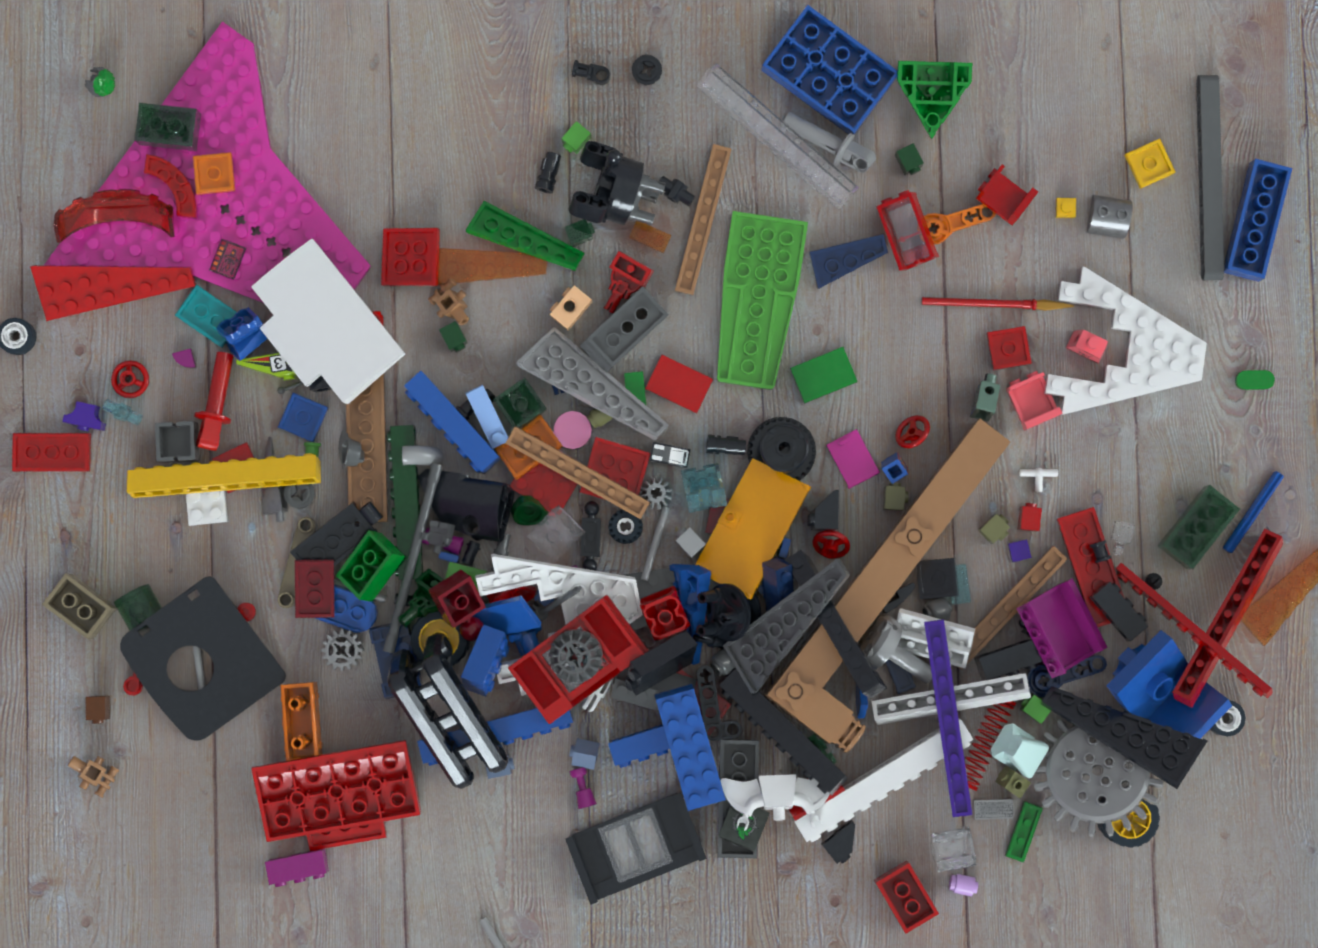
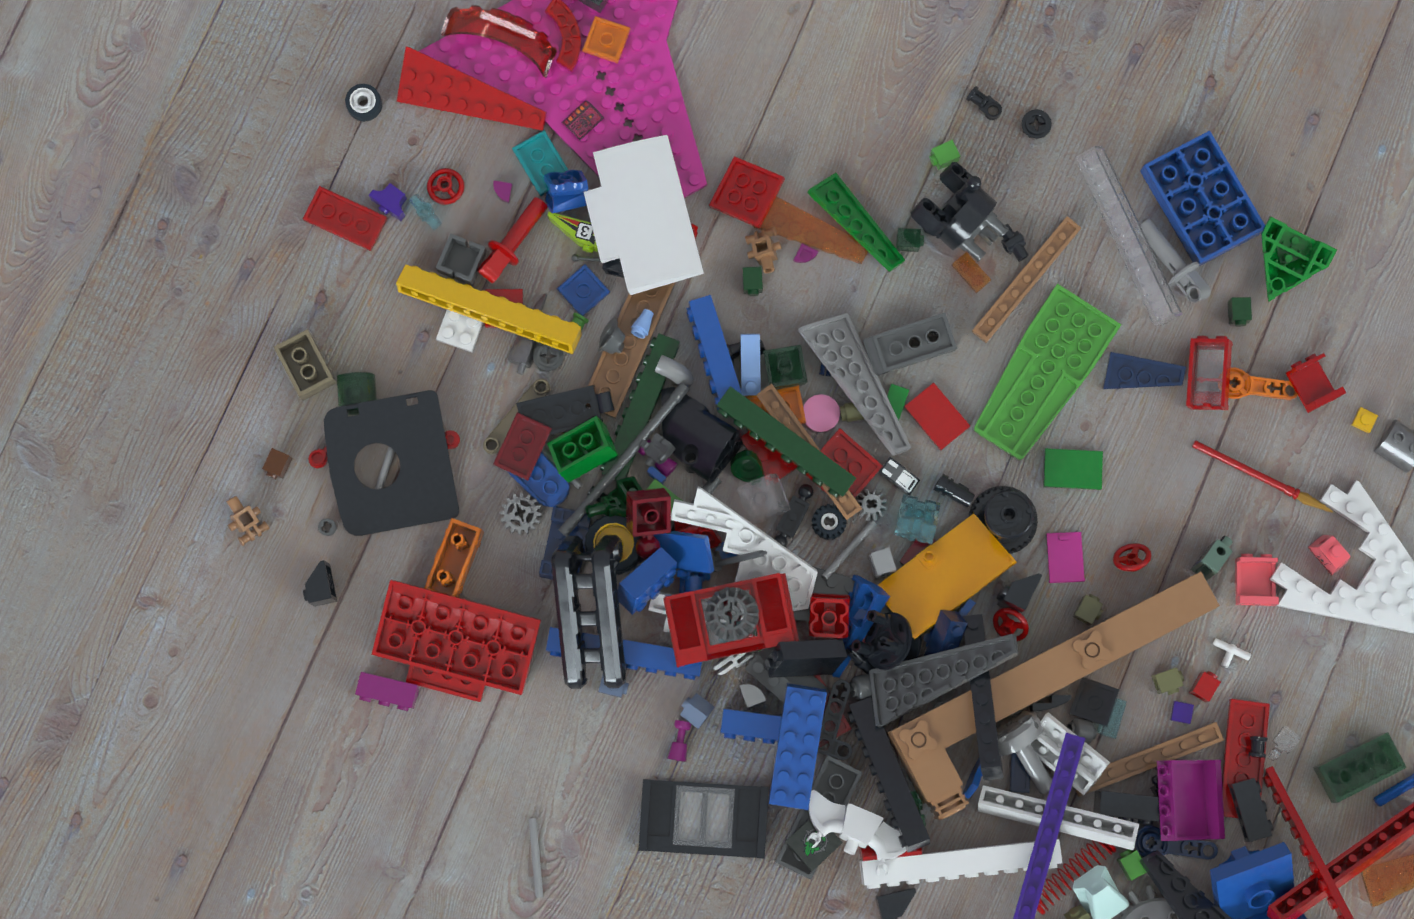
camera: 25 degrees right, 5 degrees down
(165, 744) = (322, 524): none -> dark grey bush
(191, 801) = (320, 586): none -> black slope
(371, 424) = (642, 325): none -> light blue cone
(471, 552) = (677, 480): black pin -> none
(490, 289) = (805, 254): none -> magenta tile
(549, 170) = (907, 172): black axle -> none
(552, 475) = (785, 442): none -> dark green brick
(581, 302) = (862, 311): light nougat brick -> none
(628, 276) = (933, 299): red brick -> none
(628, 718) = (751, 695): none -> light grey brick
(894, 467) = (1100, 582): blue brick -> none
(1009, 348) = (1255, 522): red plate -> none
(1154, 580) = (1296, 798): black piece -> none

